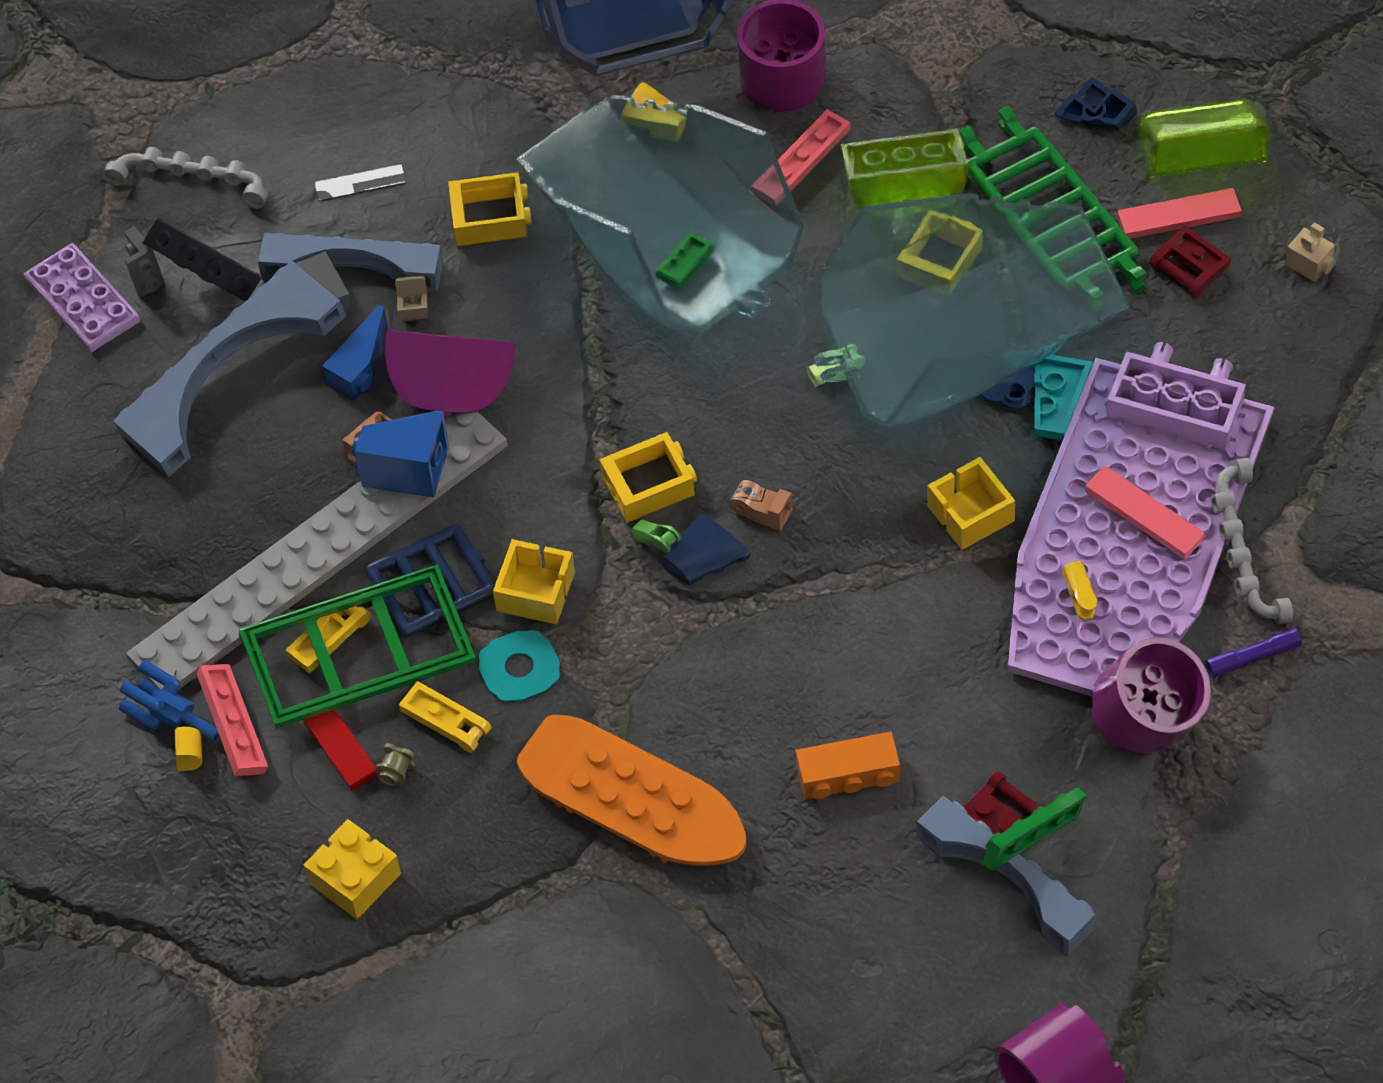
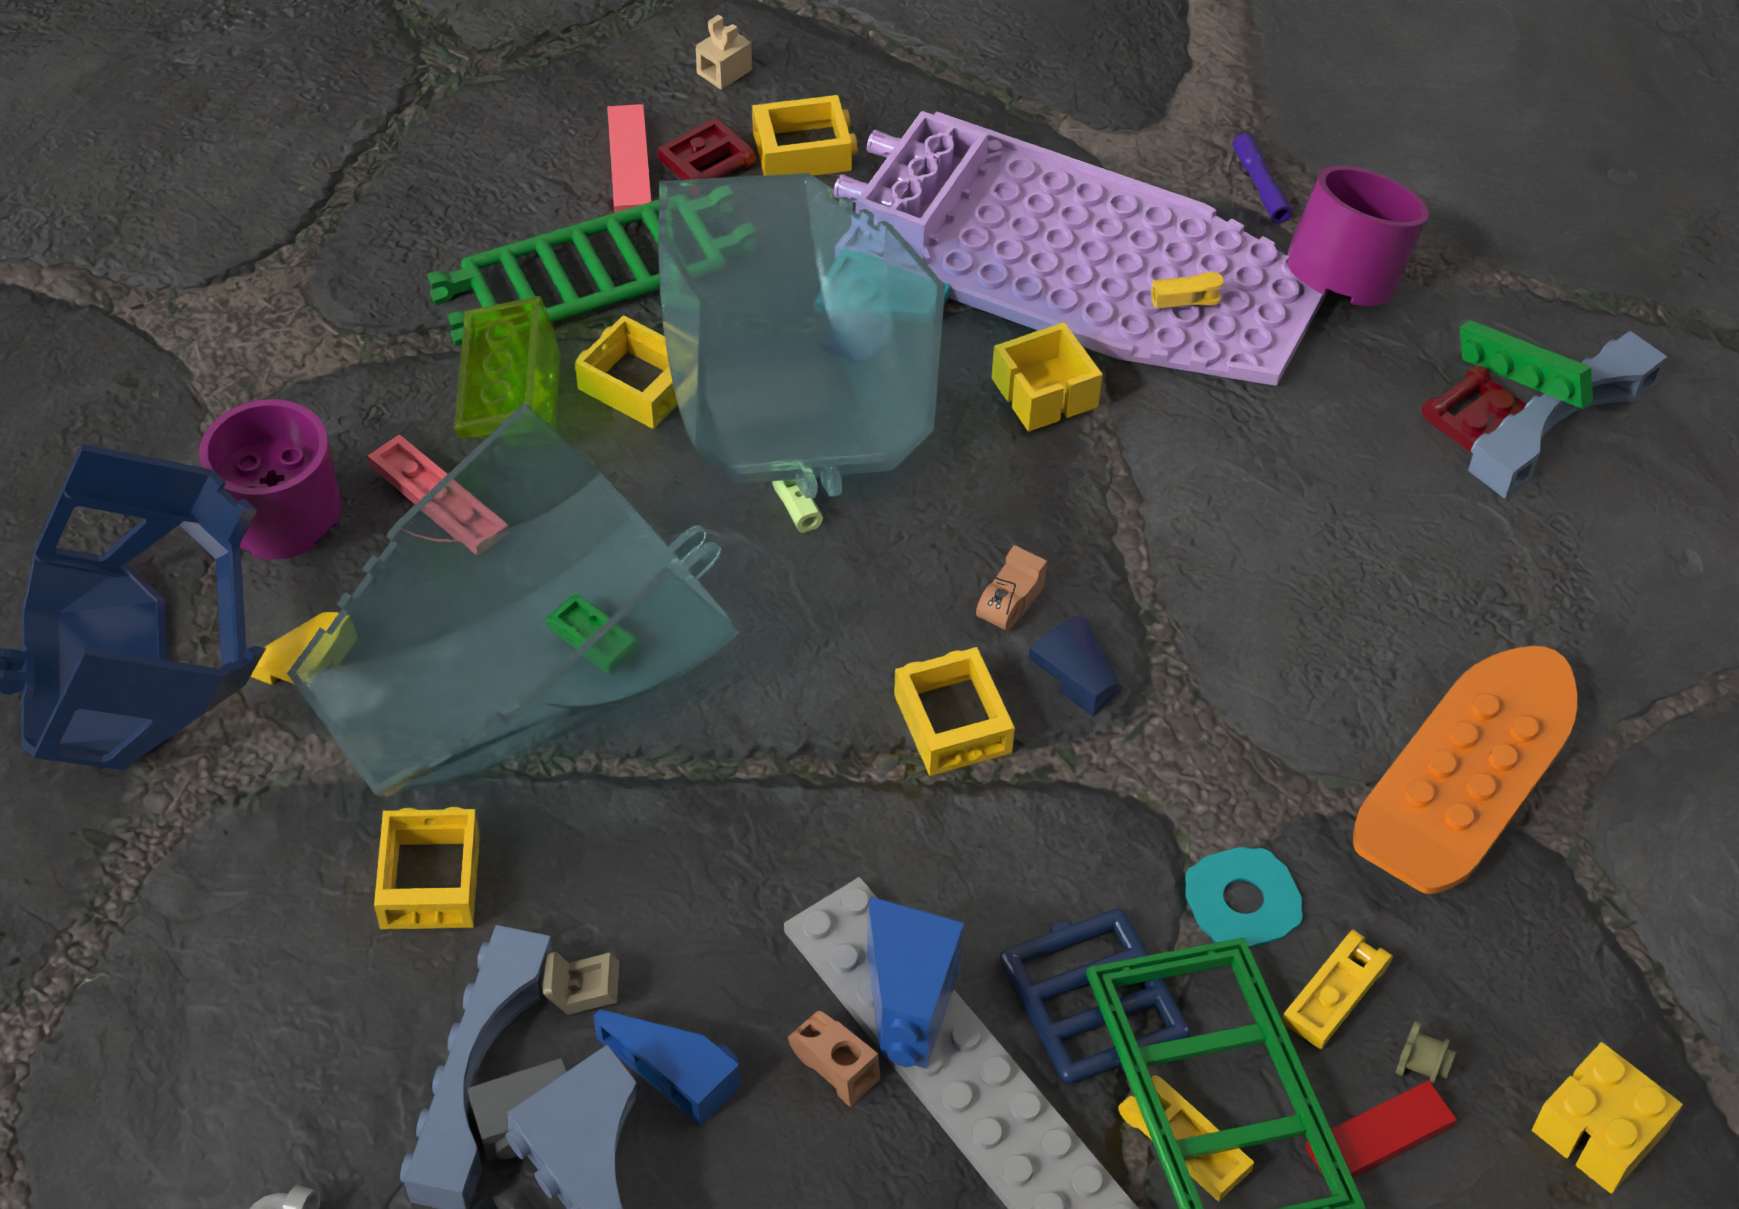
camera: 90 degrees left, 5 degrees down
(360, 182) = (306, 1056): white sticker -> none
(448, 370) = (736, 935): magenta brick -> none
(530, 590) = (1126, 862): yellow piece -> none
(655, 535) = (1055, 706): bright green bar -> none
(848, 765) = (1421, 541): orange brick -> none
(1098, 106) = (443, 204): dark blue slope -> none
(1145, 512) = (1077, 226): coral tile -> none
(1203, 137) = (524, 115): clear neon green windscreen -> none
(1216, 296) = (807, 157): none -> yellow window
(1240, 555) = (1209, 145): light grey bar -> none

